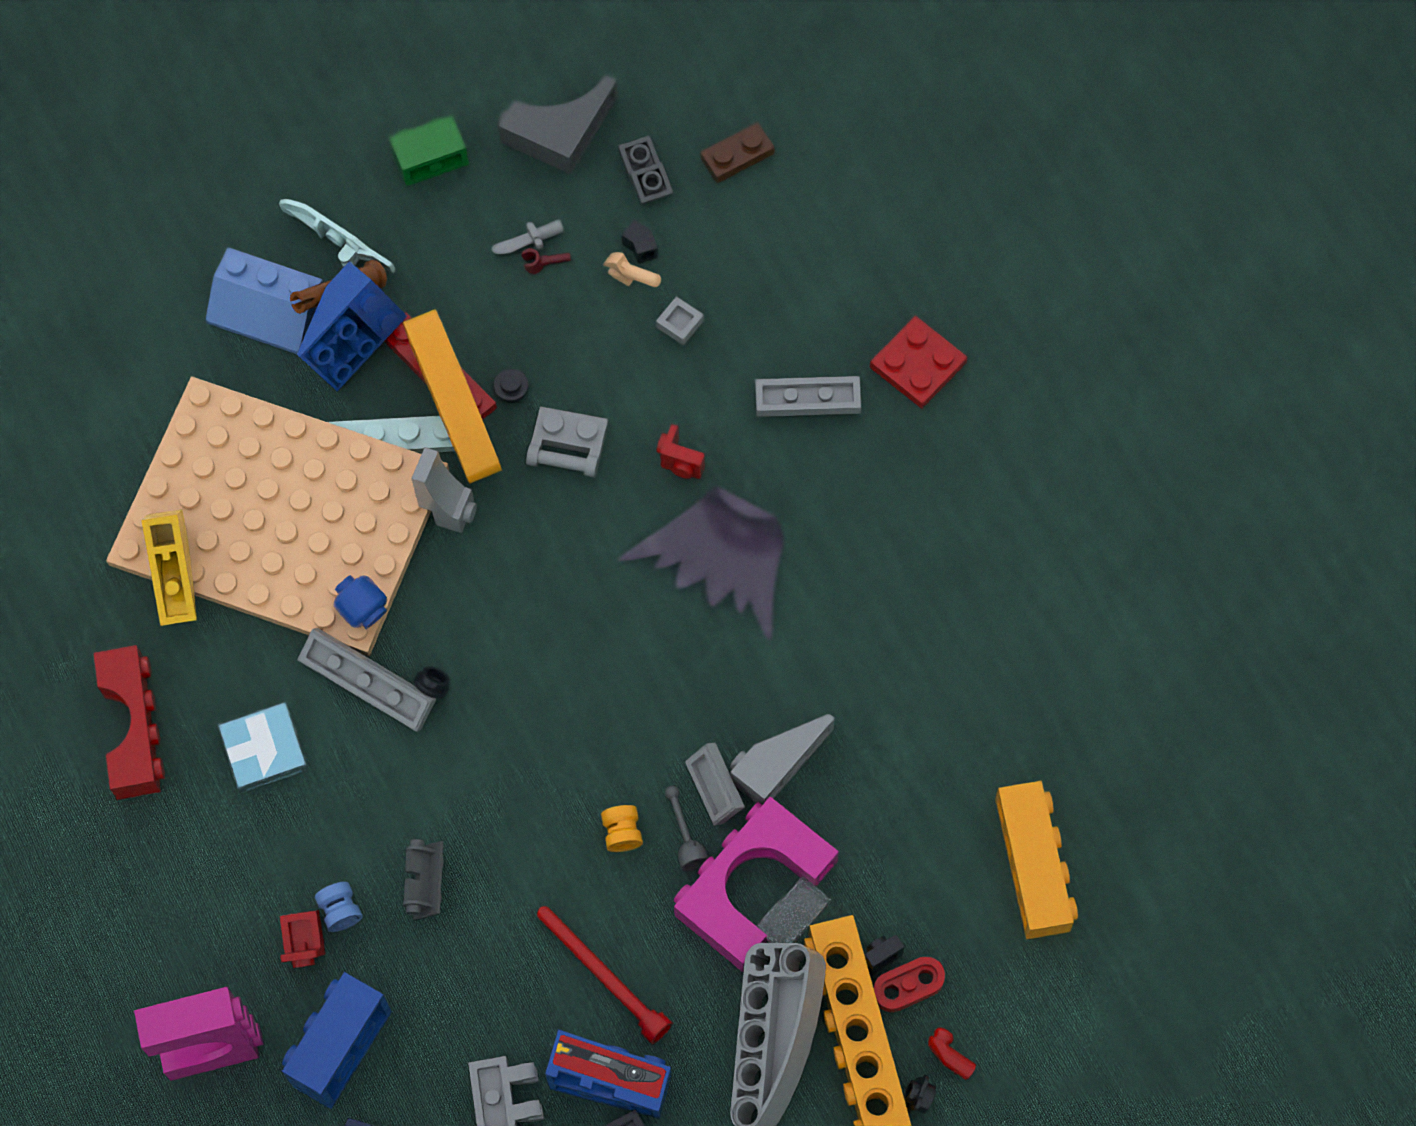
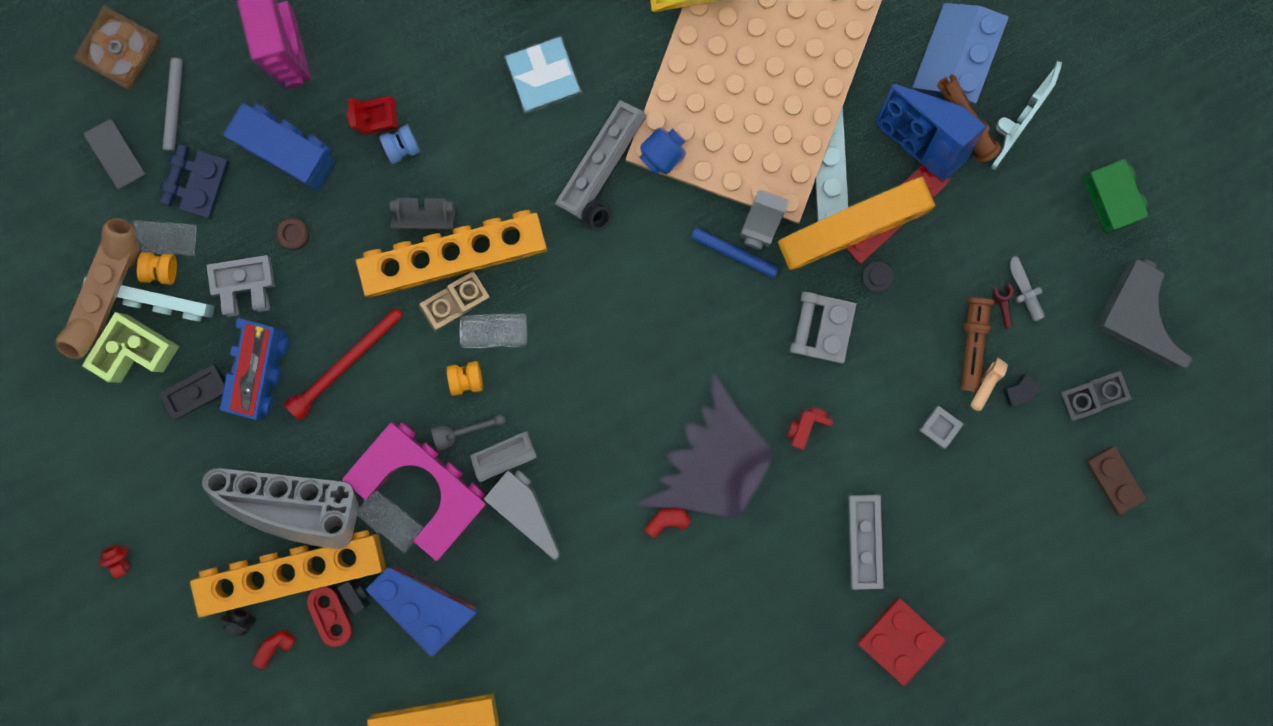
camera: 85 degrees right, 20 degrees up
(442, 1038) = (293, 233): none -> reddish brown tile
(479, 536) = (734, 252): none -> blue bar
(503, 932) = (377, 283): none -> light orange brick
(529, 845) = (454, 301): none -> tan slope
(565, 797) = (493, 330): none -> clear slope
(571, 285) = (982, 327): none -> dark orange pin
(785, 607) = (668, 518): none -> red arm
(896, 872) = (421, 607): none -> blue wedge

